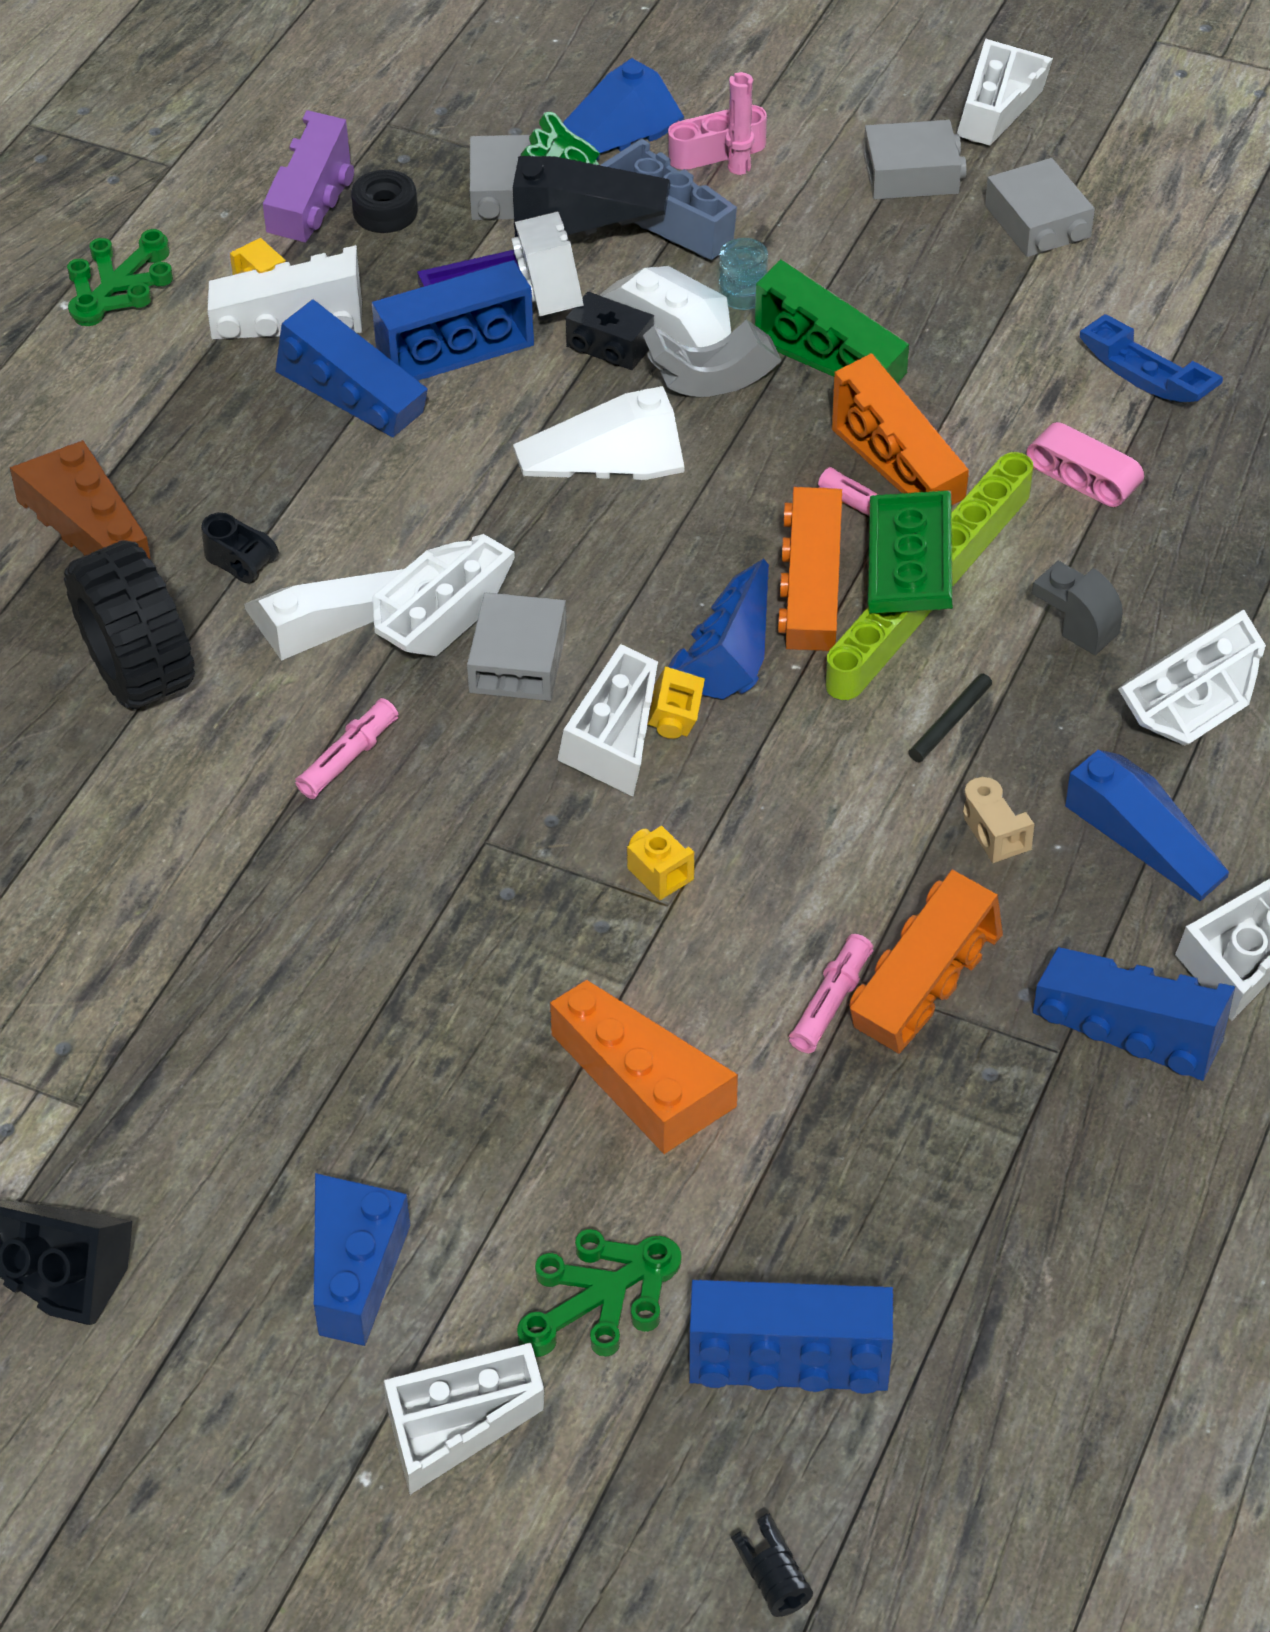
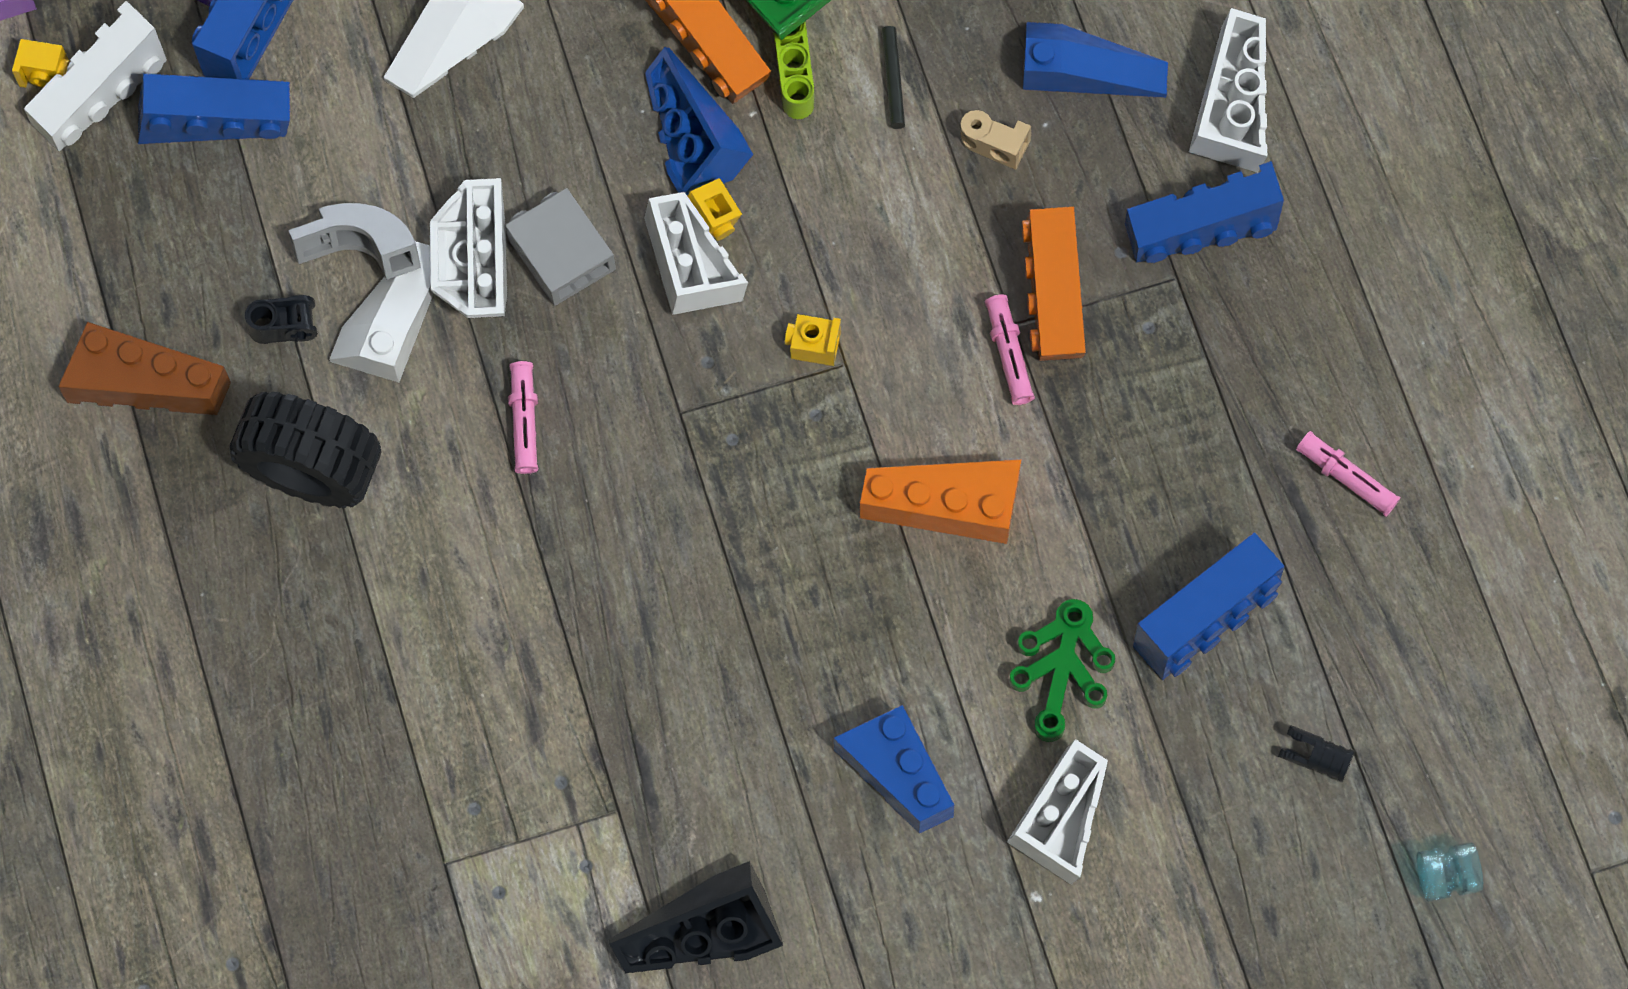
camera: 40 degrees left, 20 degrees up
(359, 518) = (361, 229): none -> light grey arch
(1058, 1316) = (1343, 470): none -> bright pink pin

